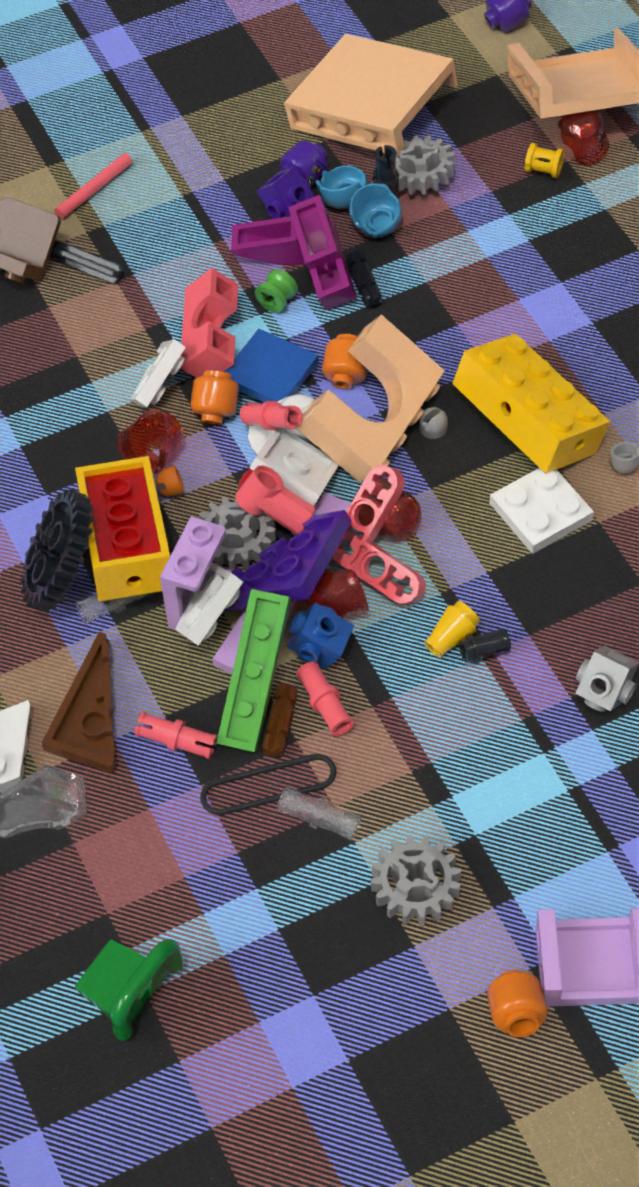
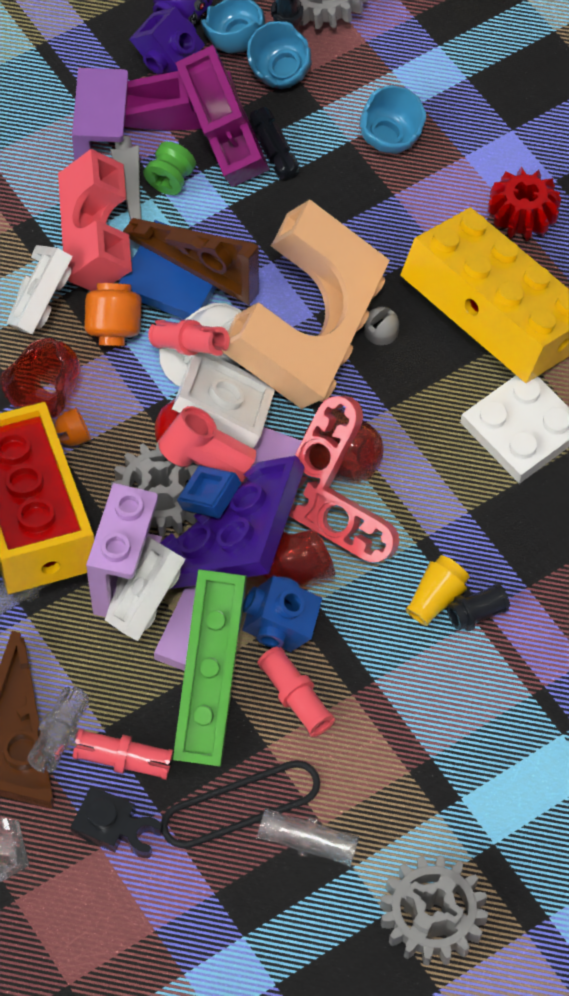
camera: 10 degrees left, 5 degrees up
(125, 710) = (58, 729): none -> clear pin
(159, 786) = (109, 820): none -> black plate
(225, 239) = (99, 107): none -> medium lavender panel
(245, 294) = (129, 157): none -> light grey piece
(272, 535) = (209, 491): none -> blue tile
(280, 720) = (245, 723): reddish brown axle -> none
(300, 357) = (216, 259): none -> reddish brown wing
(340, 365) = (272, 264): orange head -> none
(461, 265) = (392, 119): none -> dark azure hair
(562, 336) = (524, 204): none -> red gear

